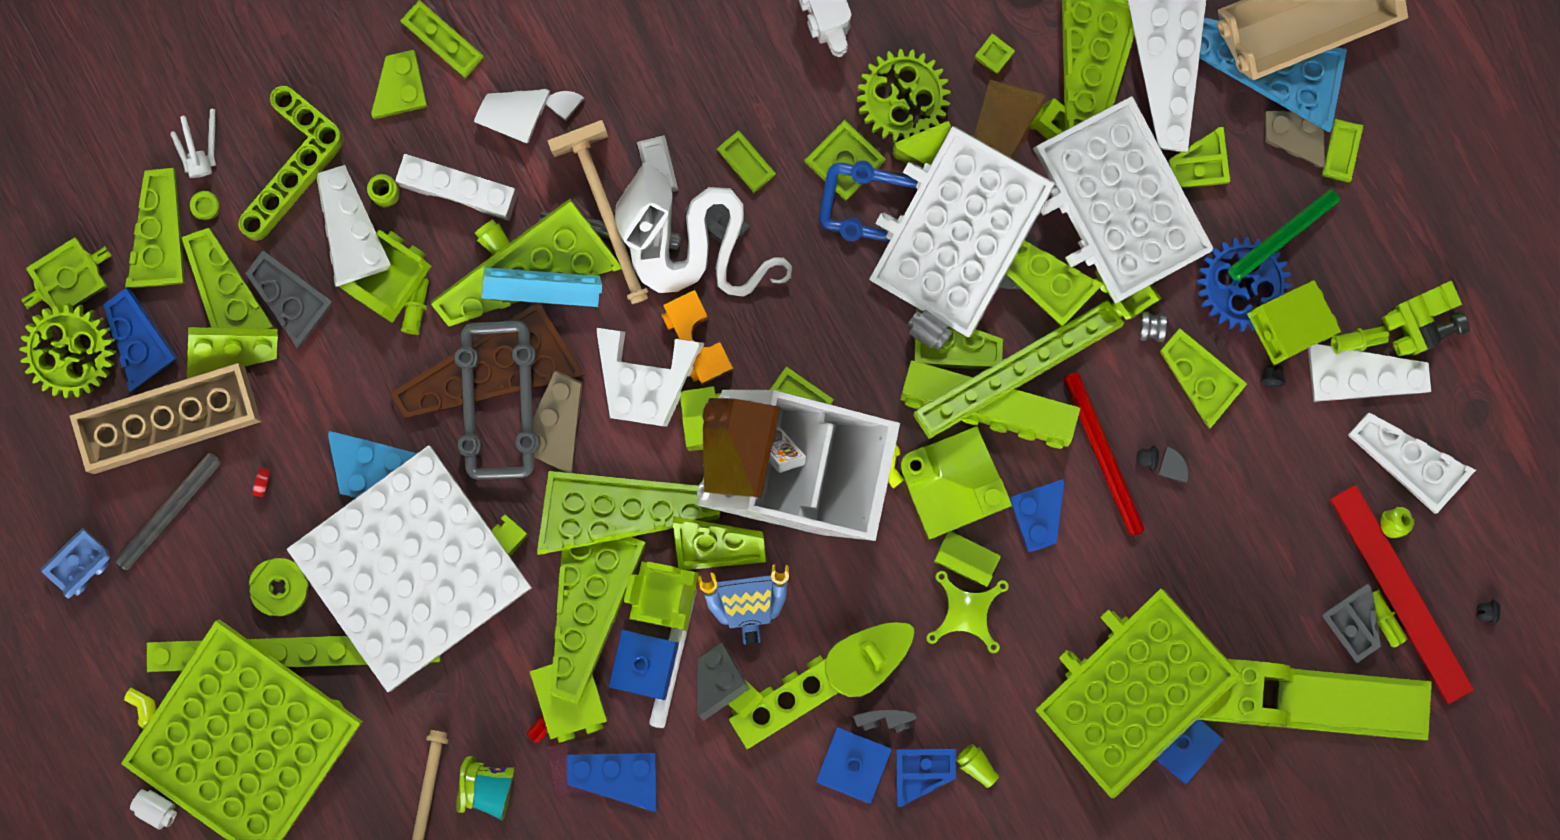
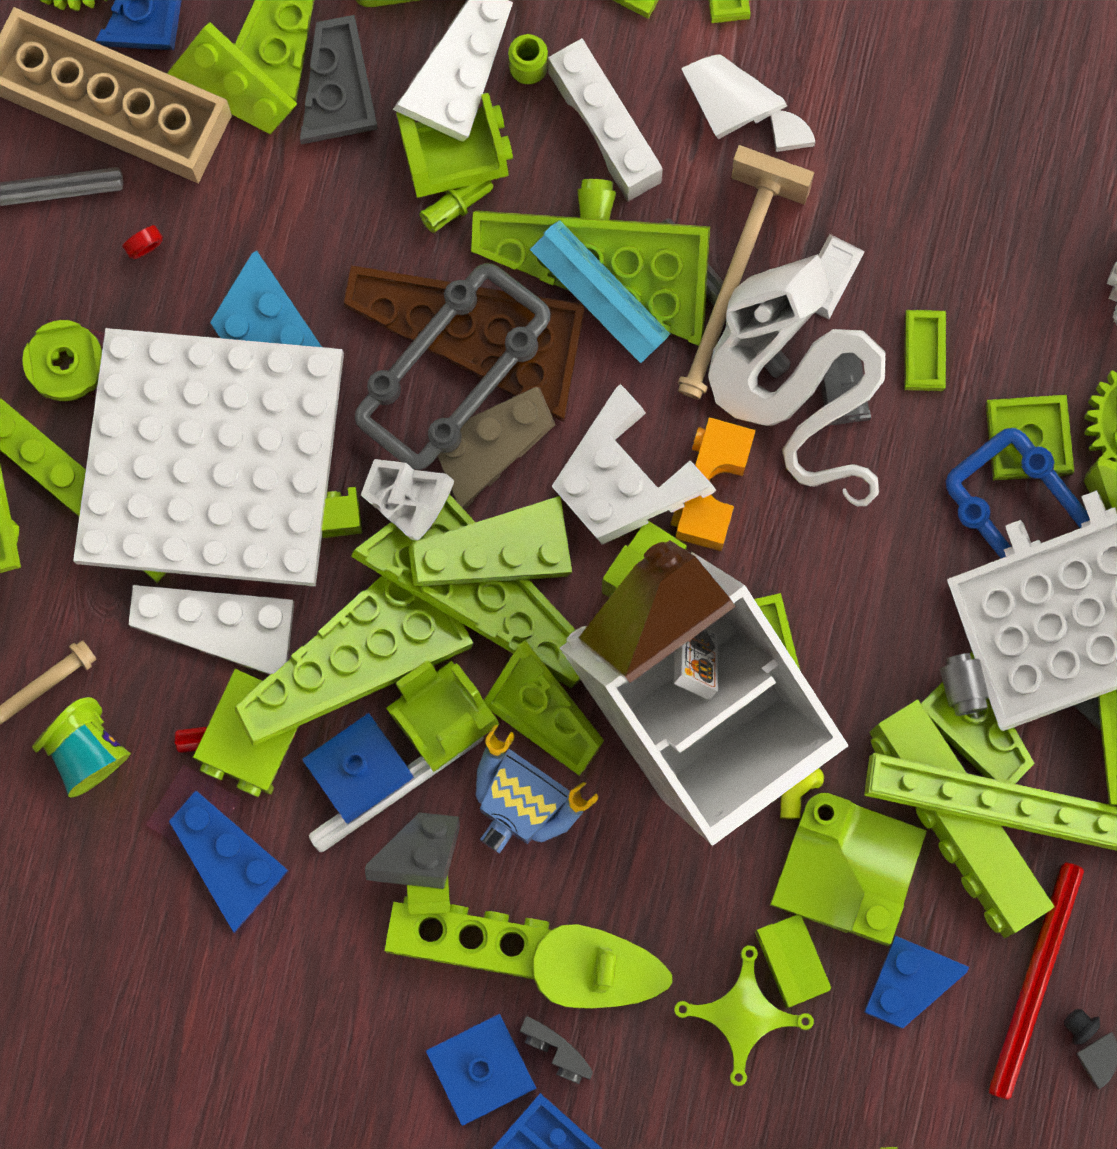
camera: 40 degrees right, 5 degrees down
(505, 649) = (229, 626): none -> white wing
(537, 494) = (407, 495): none -> white slope
(616, 474) = (501, 548): none -> lime wing

